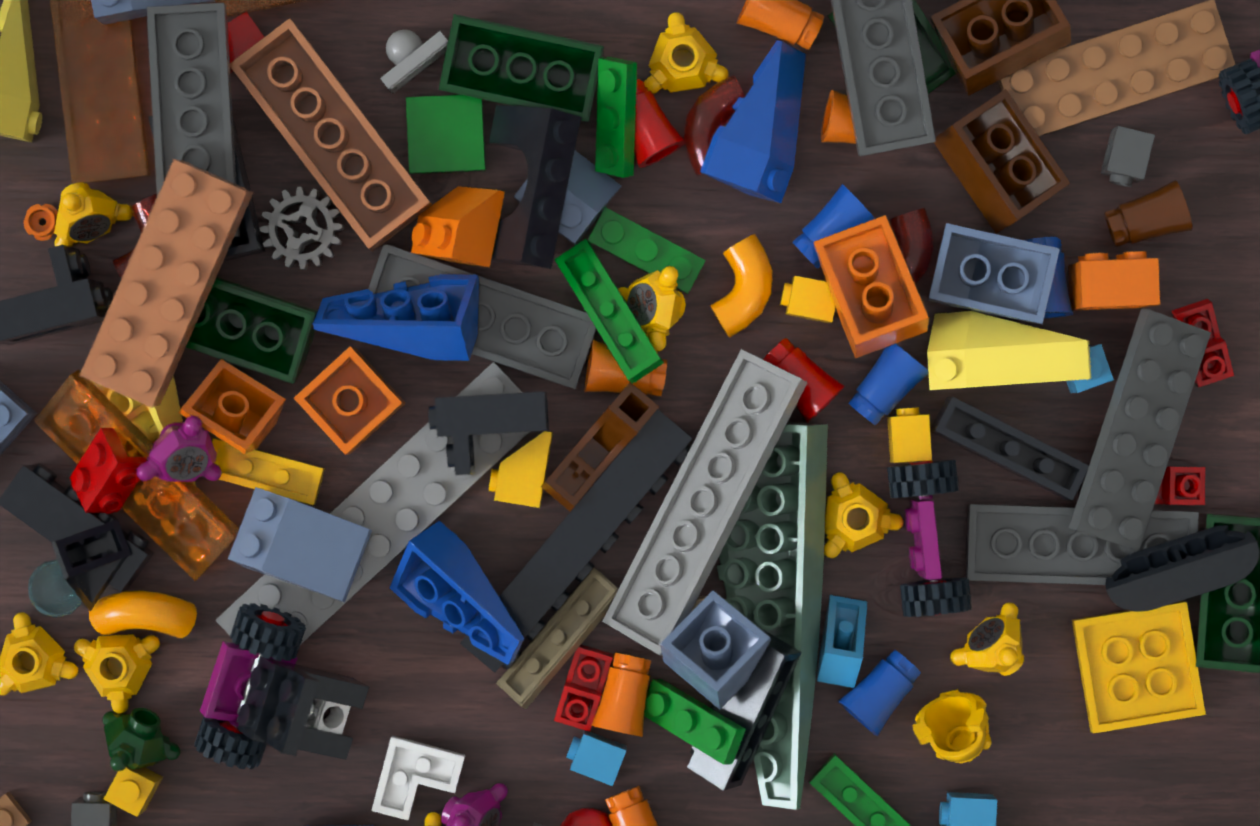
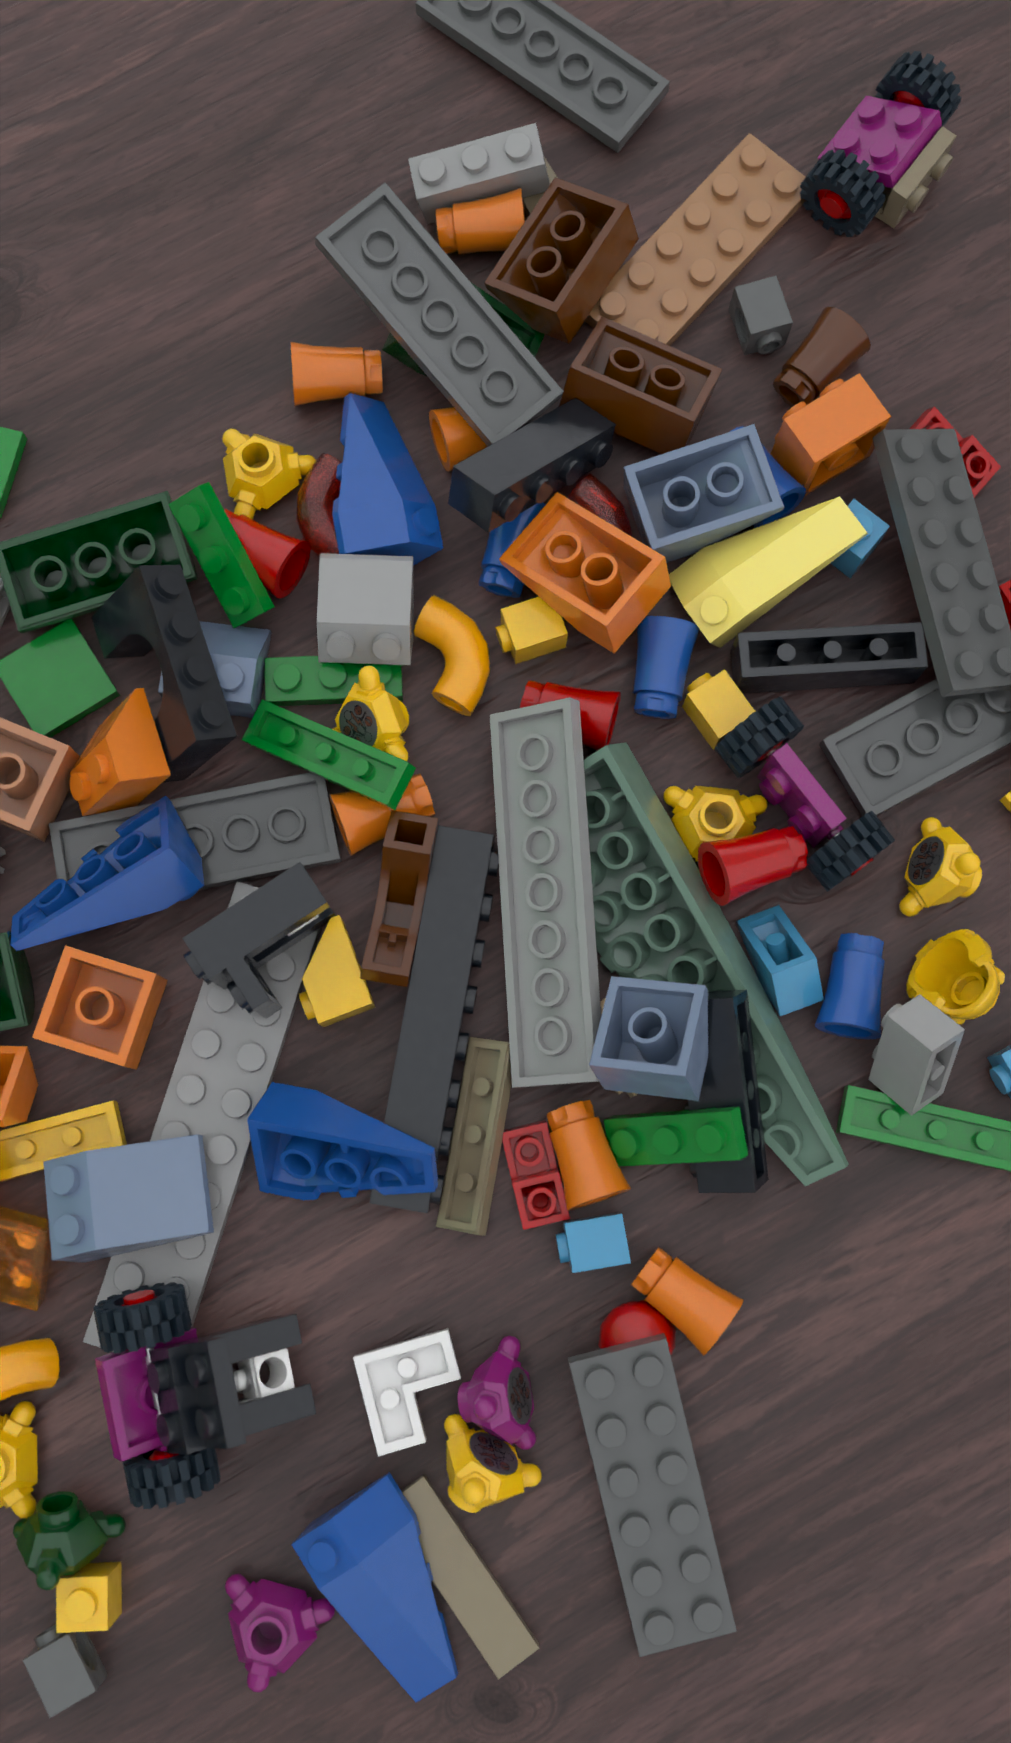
camera: 30 degrees left, 10 degrees down
(696, 220) = (365, 609): none -> light grey slope
(861, 564) = (750, 862): none -> red plant
(880, 184) = (531, 464): none -> black brick
(890, 762) = (915, 1053): none -> light grey brick

